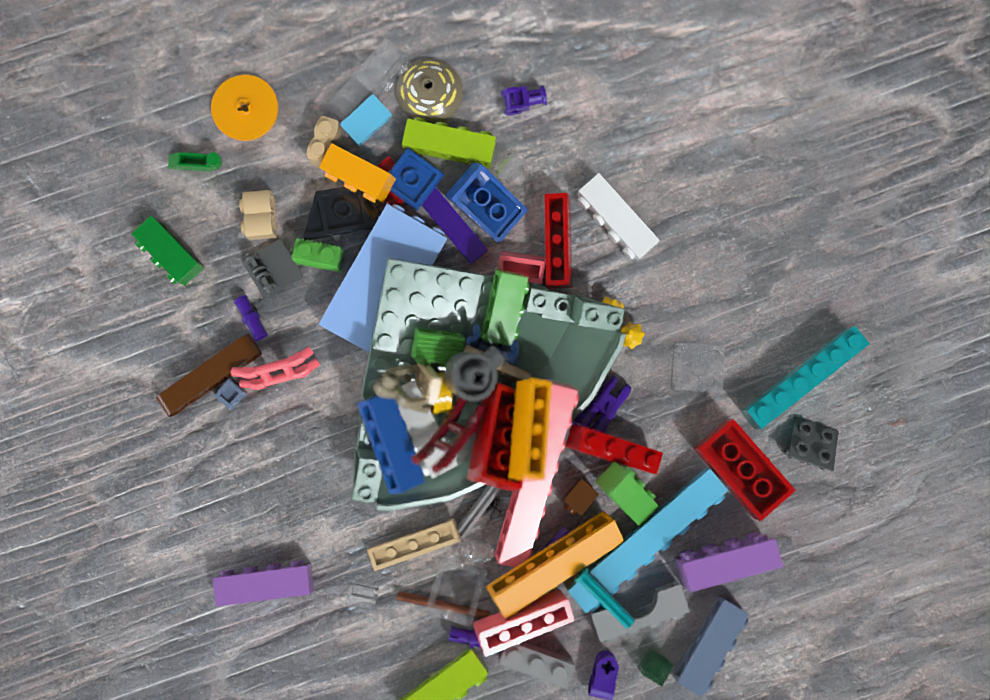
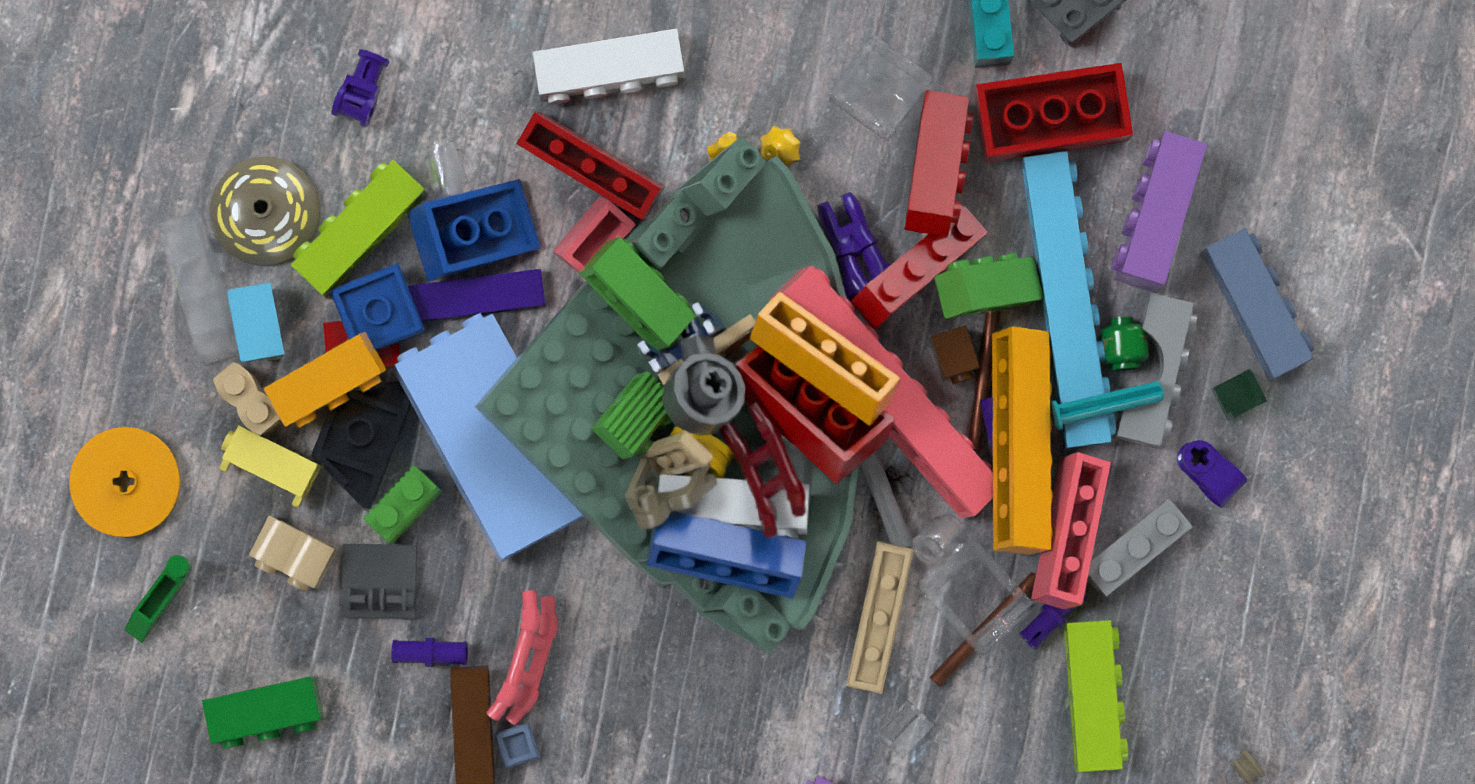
camera: 60 degrees left, 0 degrees up
(299, 174) = (269, 462): none -> light yellow brick
(576, 520) = (983, 379): none -> copper bar
(643, 586) = (1124, 344): none -> green head
(676, 424) = (937, 164): none -> brick

